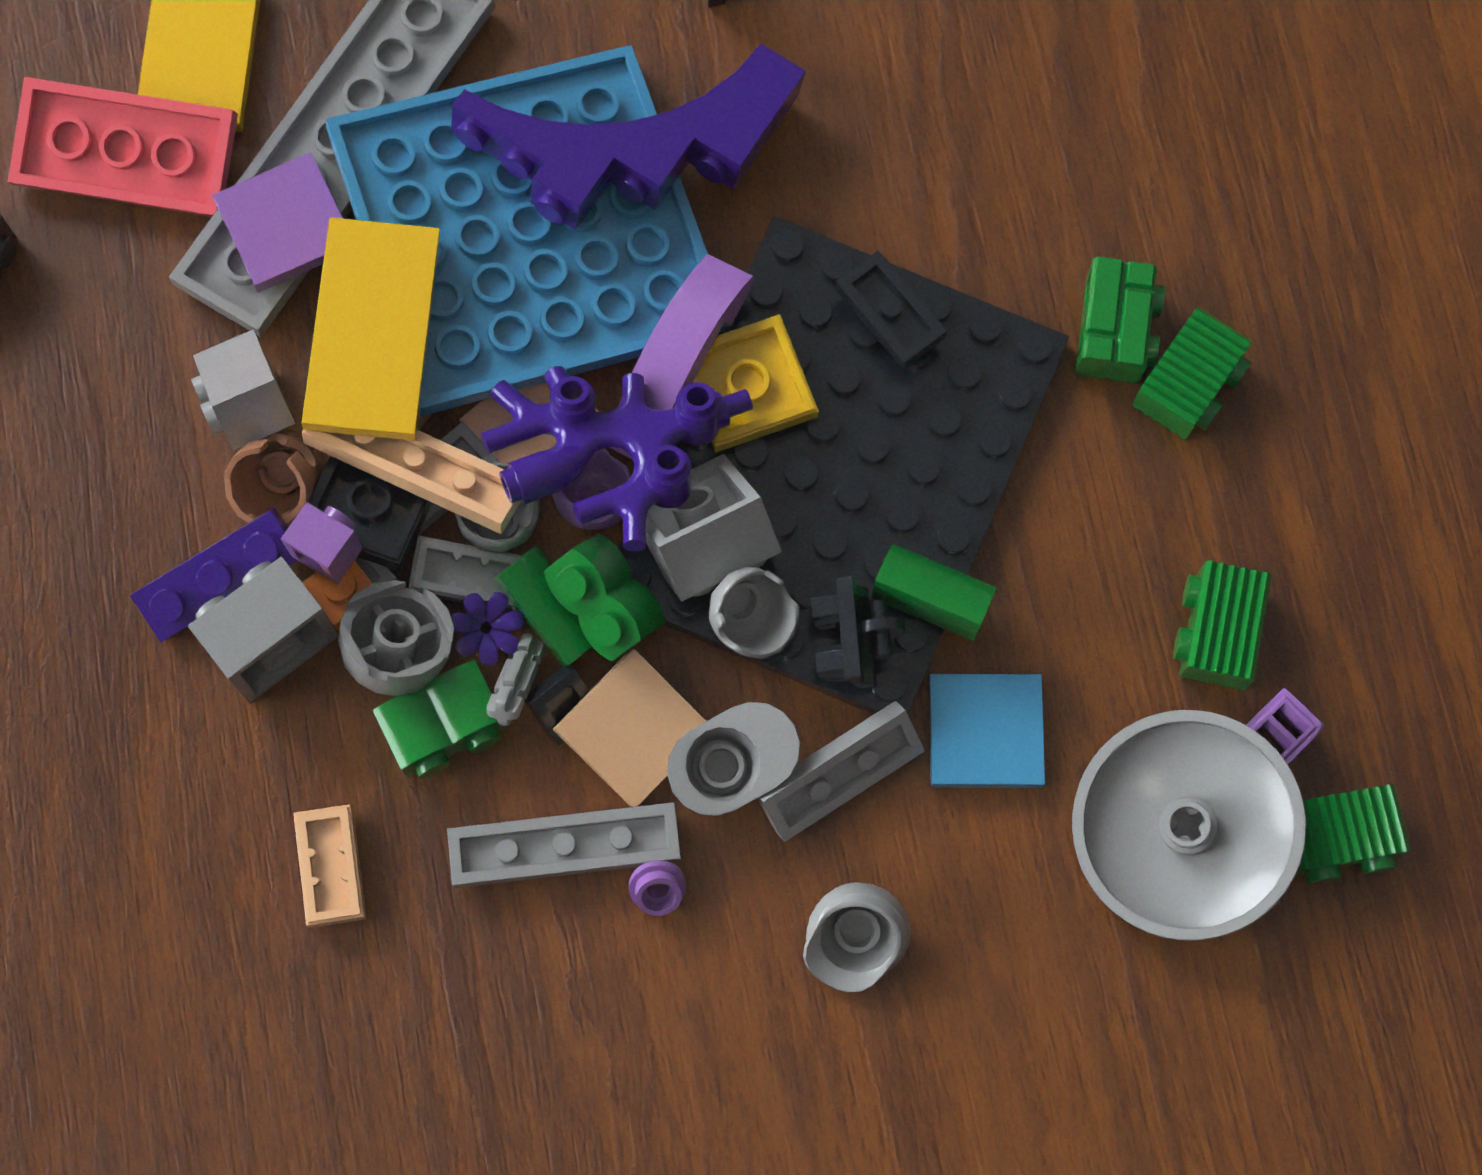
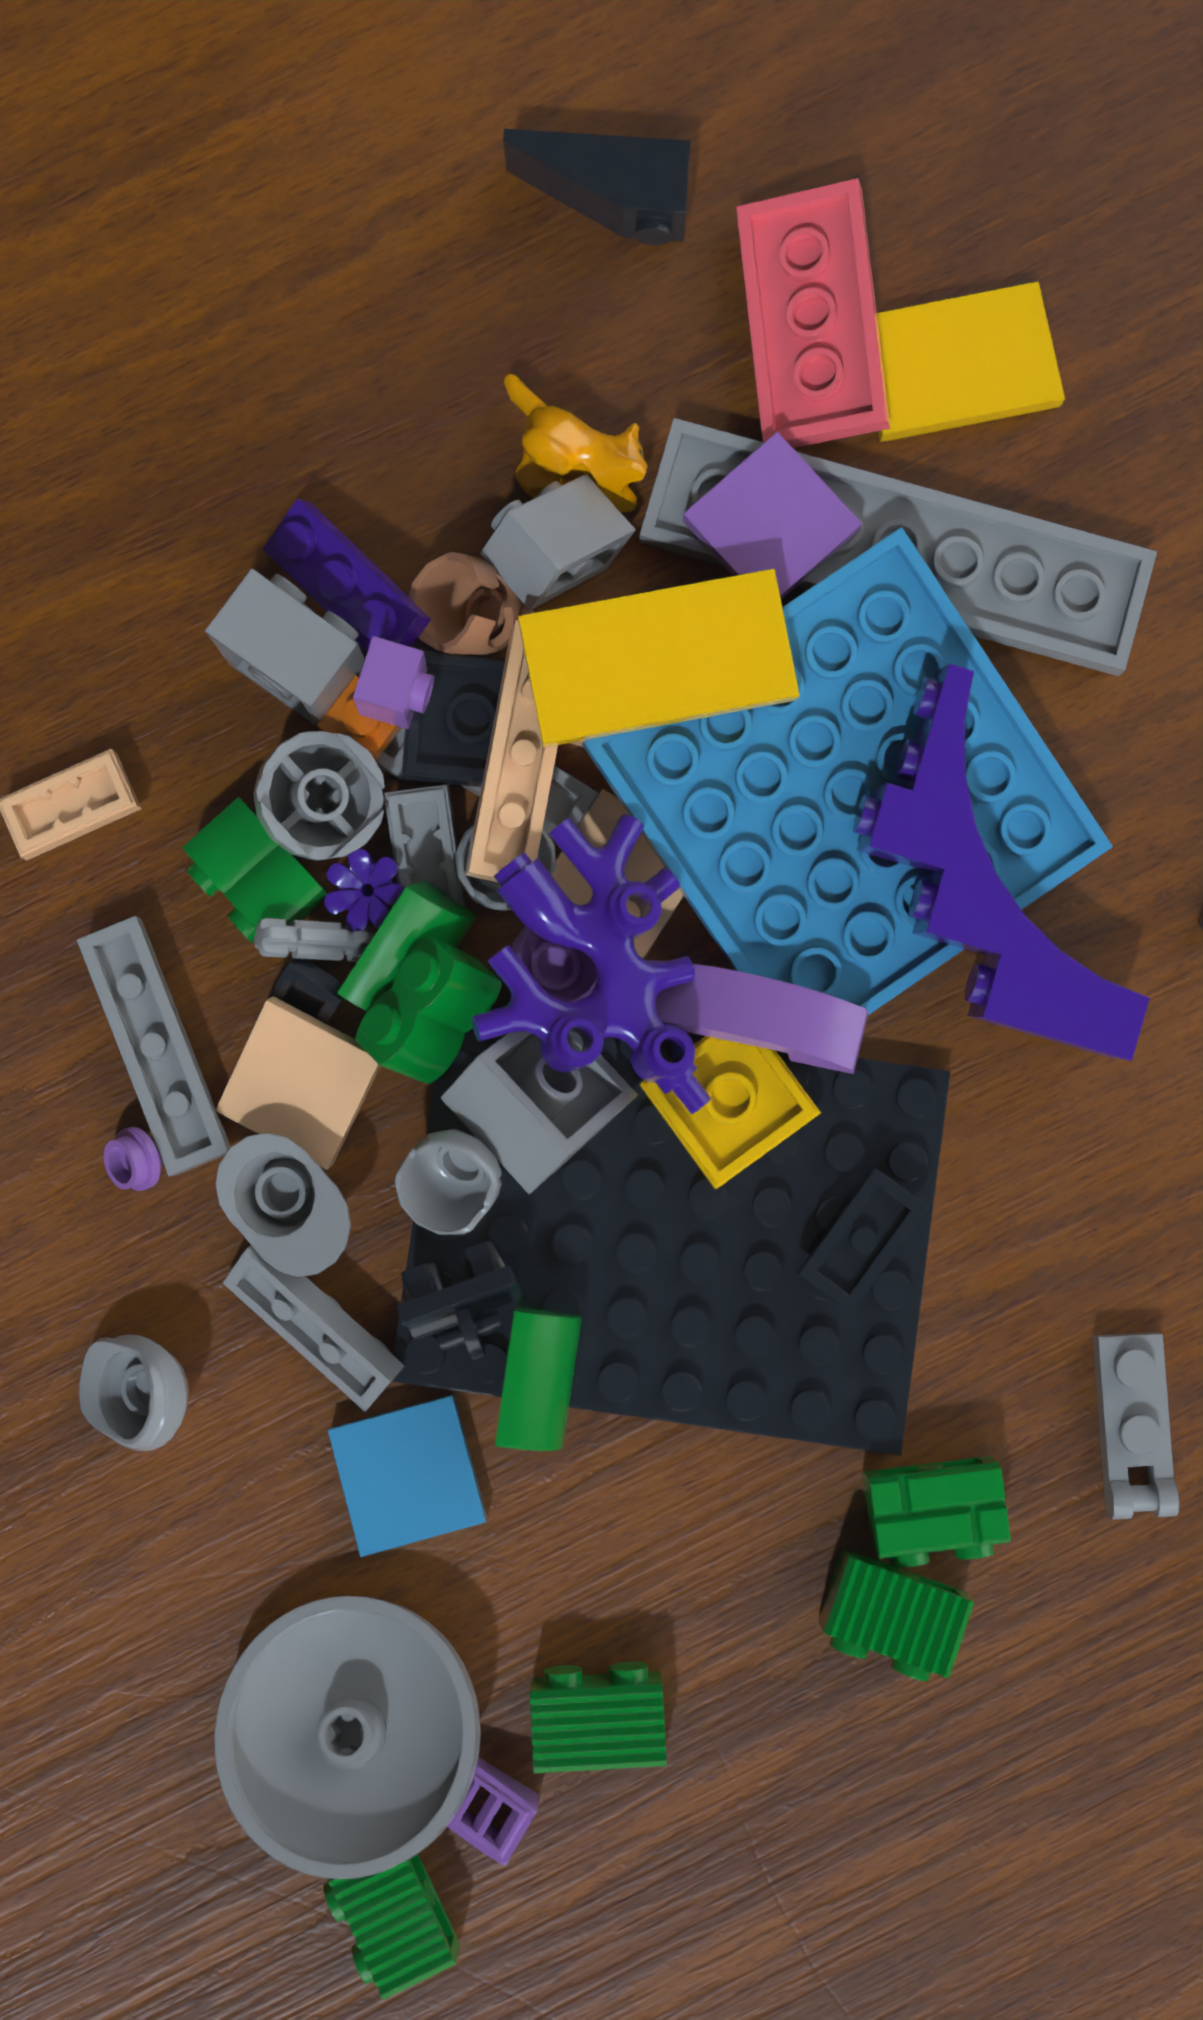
camera: 80 degrees right, 10 degrees up
(164, 369) = (565, 448): none -> light orange animal
(1090, 160) = (1134, 1423): none -> light grey plate

